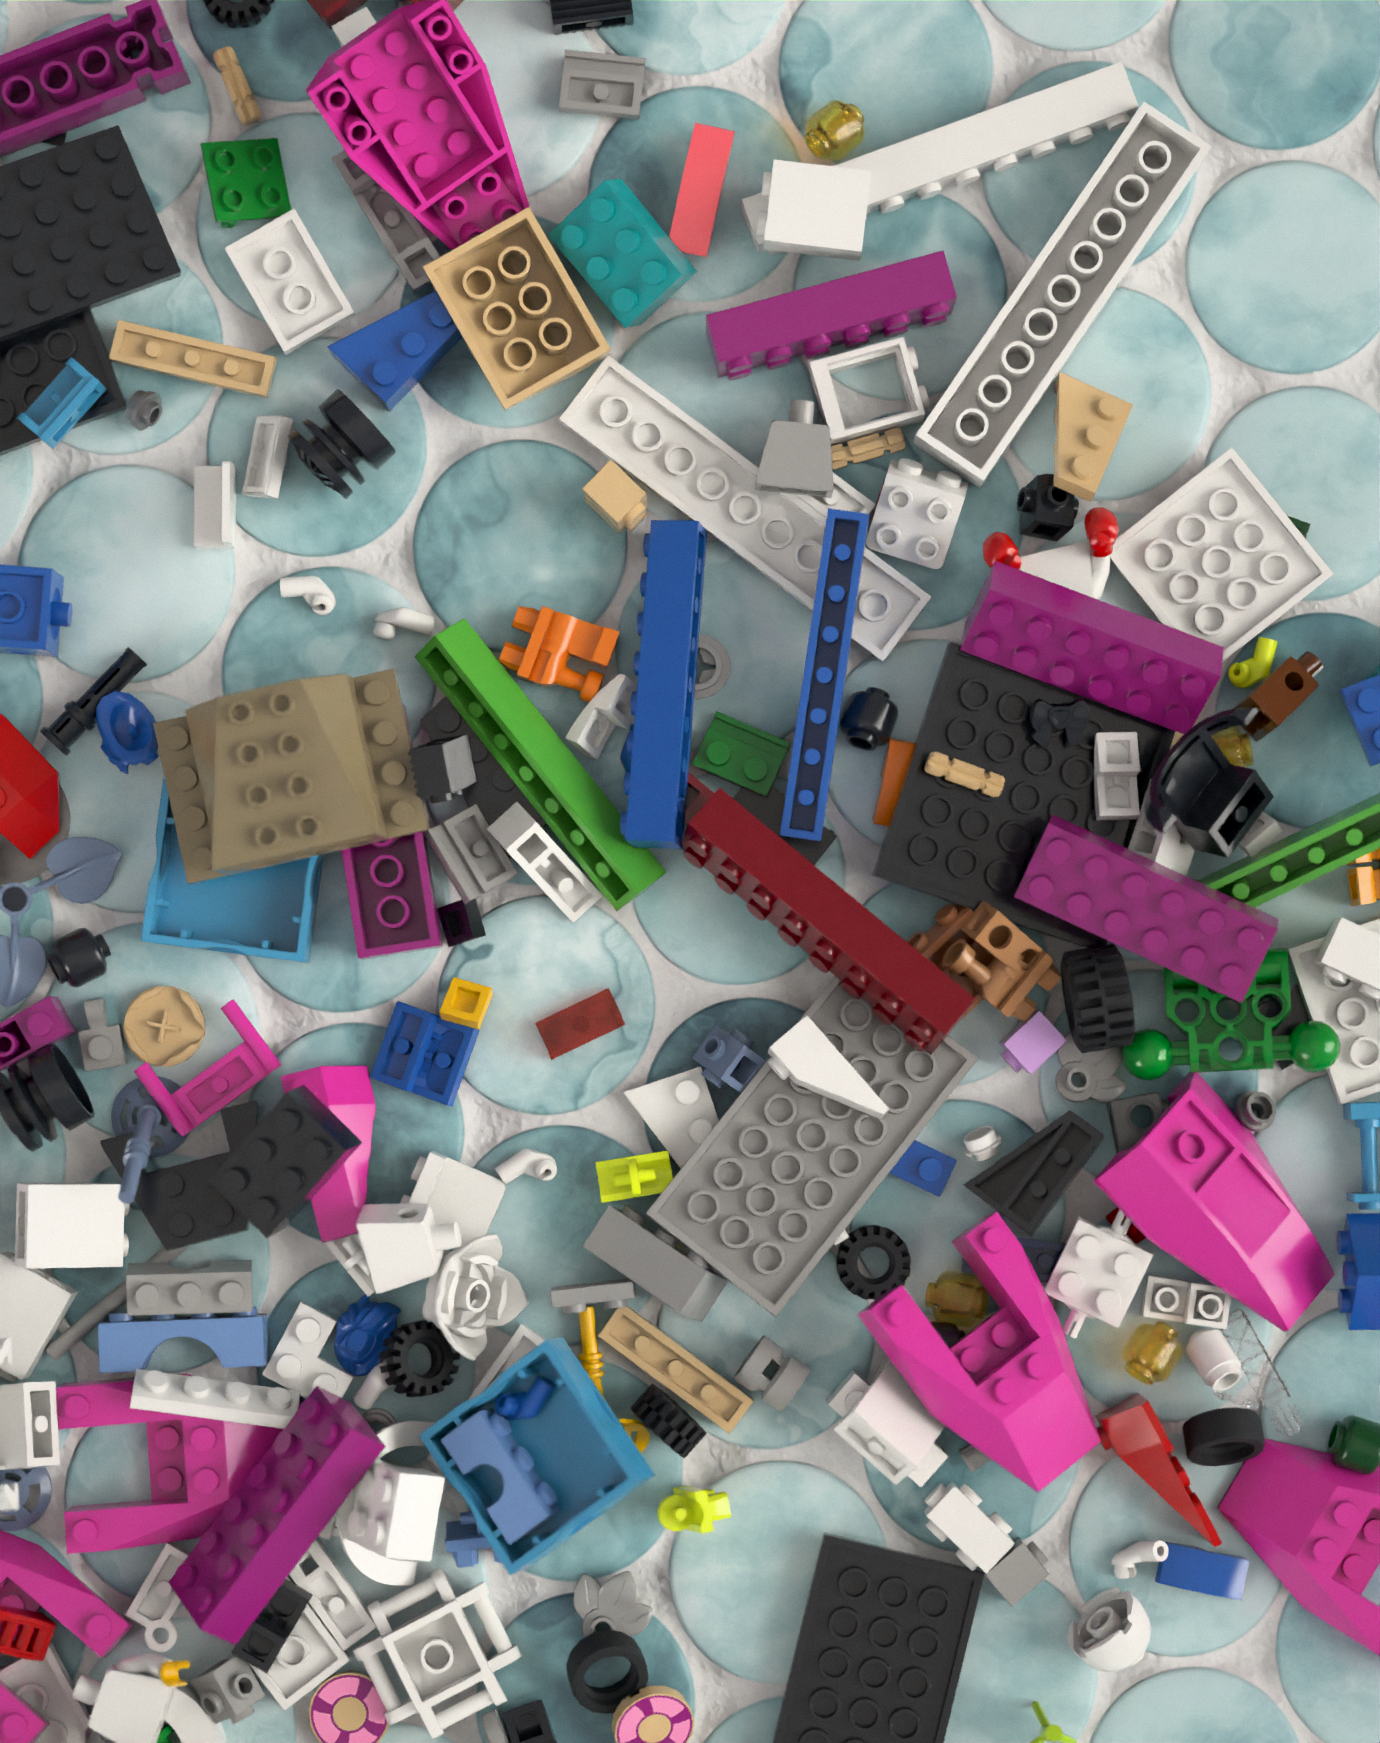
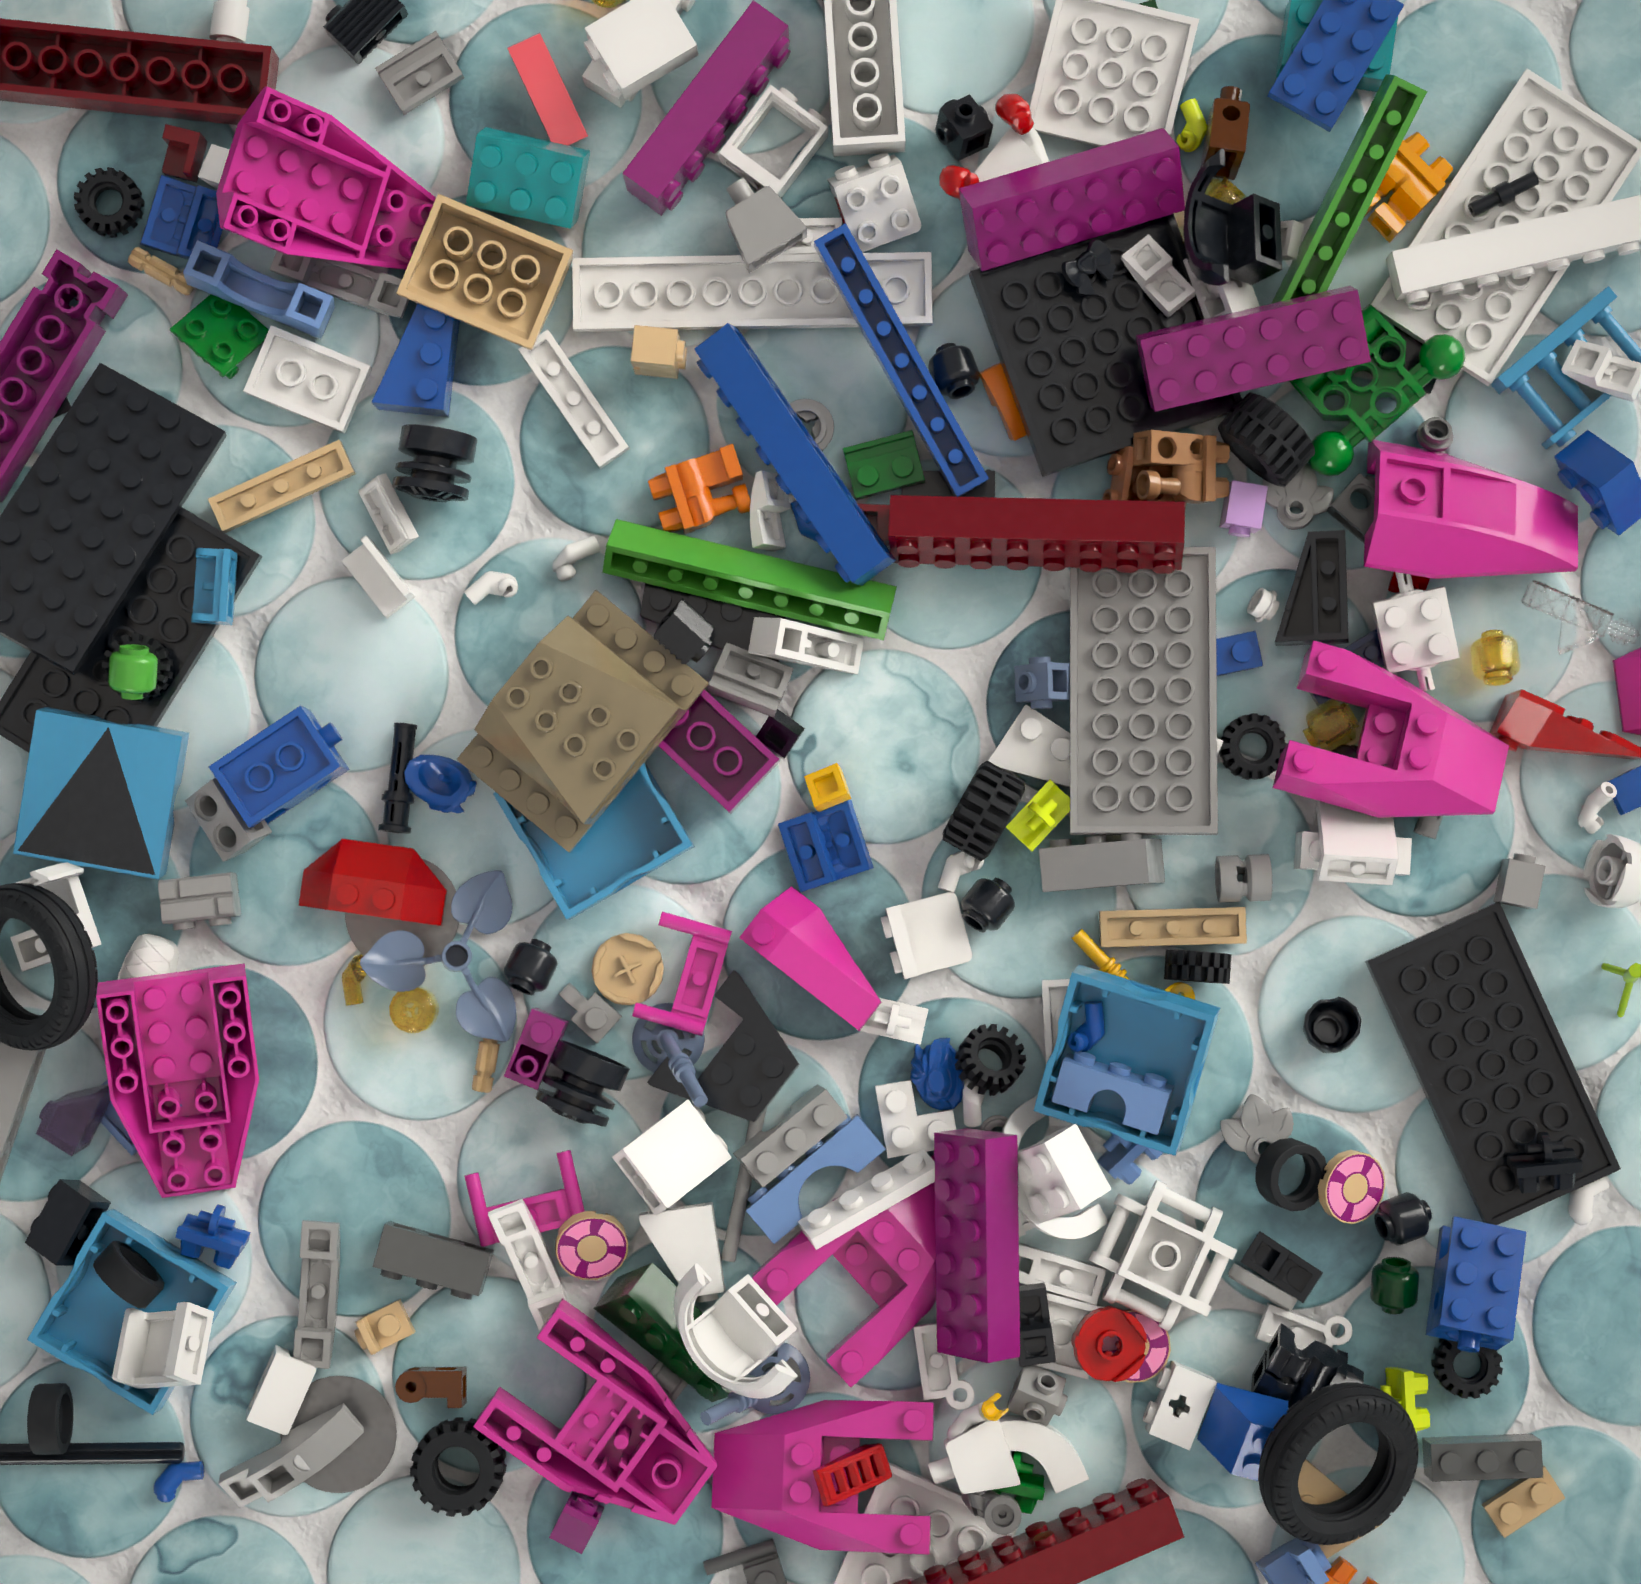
camera: 35 degrees left, 0 degrees up
(144, 409) = (275, 548): flat silver plate -> none
(285, 1161) = (790, 992): black brick -> none
(288, 54) = (181, 217): none -> blue slope
(305, 170) = (233, 281): none -> medium blue arch
(326, 1671) = (1130, 1345): none -> red plate
(403, 1243) = (918, 984): white torso -> none
(473, 1295) = (992, 985): white brick -> none
(511, 483) = (574, 400): none -> white plate
(526, 1218) = (987, 904): none -> black head
(575, 1297) = (1066, 930): light grey plate -> none
(580, 1024) = (918, 739): clear red panel -> none
(585, 1133) = (984, 811): none -> black tyre
(693, 1509) = (1263, 1014): neon yellow hips -> none
(748, 1566) = (1332, 1025): none -> black hair
(817, 1065) = (1109, 636): white slope -> none
(867, 448) = (806, 181): tan axle -> none
(957, 1515) = (1453, 876): white brick -> none
(964, 774) = (1052, 354): tan axle -> none
(1086, 434) = (951, 55): tan wing -> none
(1185, 1302) = (1490, 605): white slope -> none
(1214, 1359) = (1541, 628): white brick -> none
(1223, 1436) = (1590, 676): black tyre -> none

